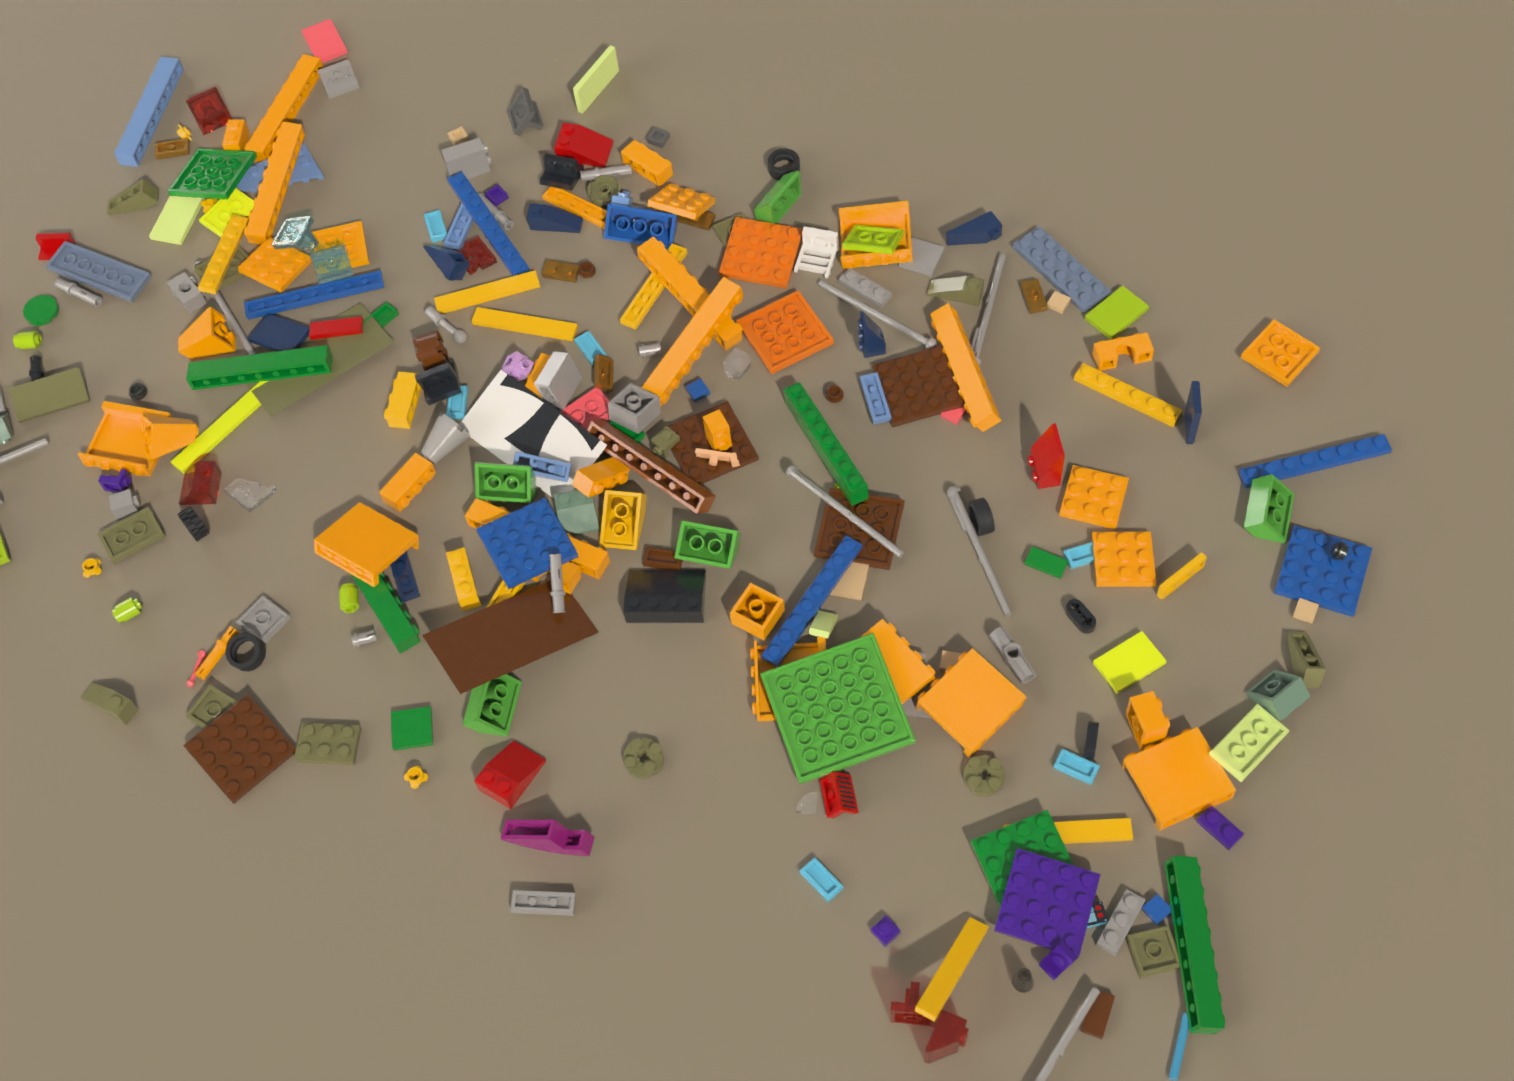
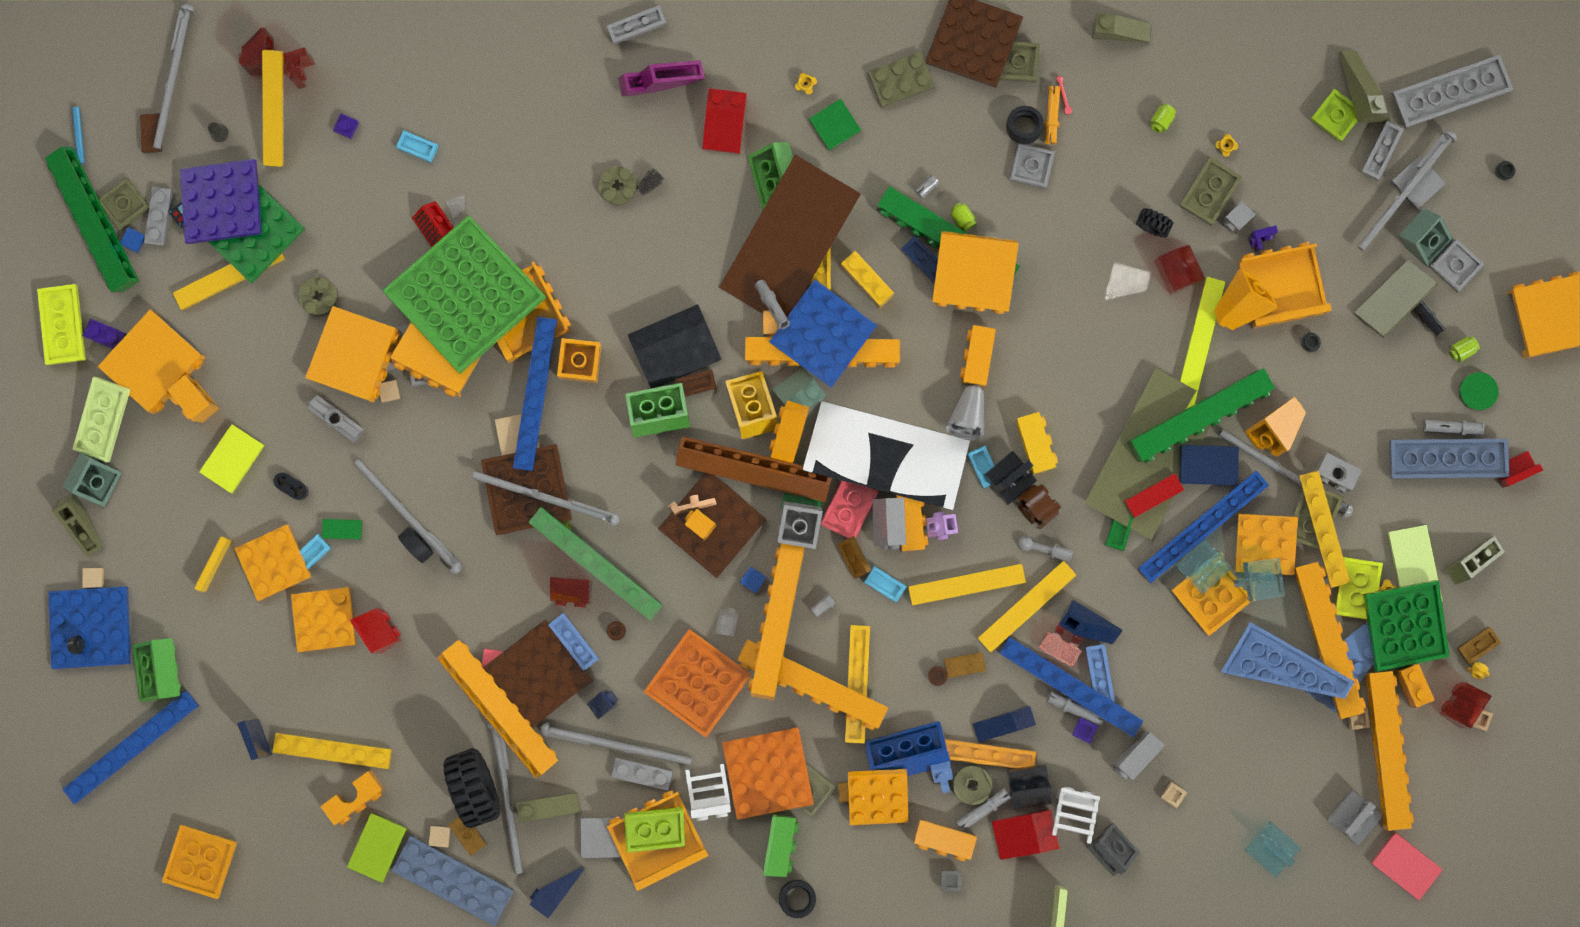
camera: 150 degrees right, 25 degrees up
(149, 112) = (1539, 684): medium blue brick -> none
(322, 181) = (1274, 661): none -> medium blue wing
(409, 80) = (1273, 849): none -> clear light blue bracket
(435, 226) = (1129, 667): medium azure tile -> none
(504, 482) = (879, 387): bright green slope -> none
(530, 149) = (1080, 800): none -> white plate
(544, 467) = (858, 422): medium blue slope -> none
(610, 746) = (650, 181): none -> clear smoke cone
(664, 442) = (752, 503): olive bracket -> none
(823, 624) = (514, 374): yellowish green tile -> none
(857, 434) = (571, 591): none -> clear red slope
(1012, 308) = (471, 788): none -> black tyre
(1057, 960) = (197, 158): dark purple bracket -> none
(1076, 766) = (243, 339): medium azure tile -> none
(1091, 739) = (238, 366): black beam -> none
(1262, 854) = (61, 324): none -> neon yellow plate

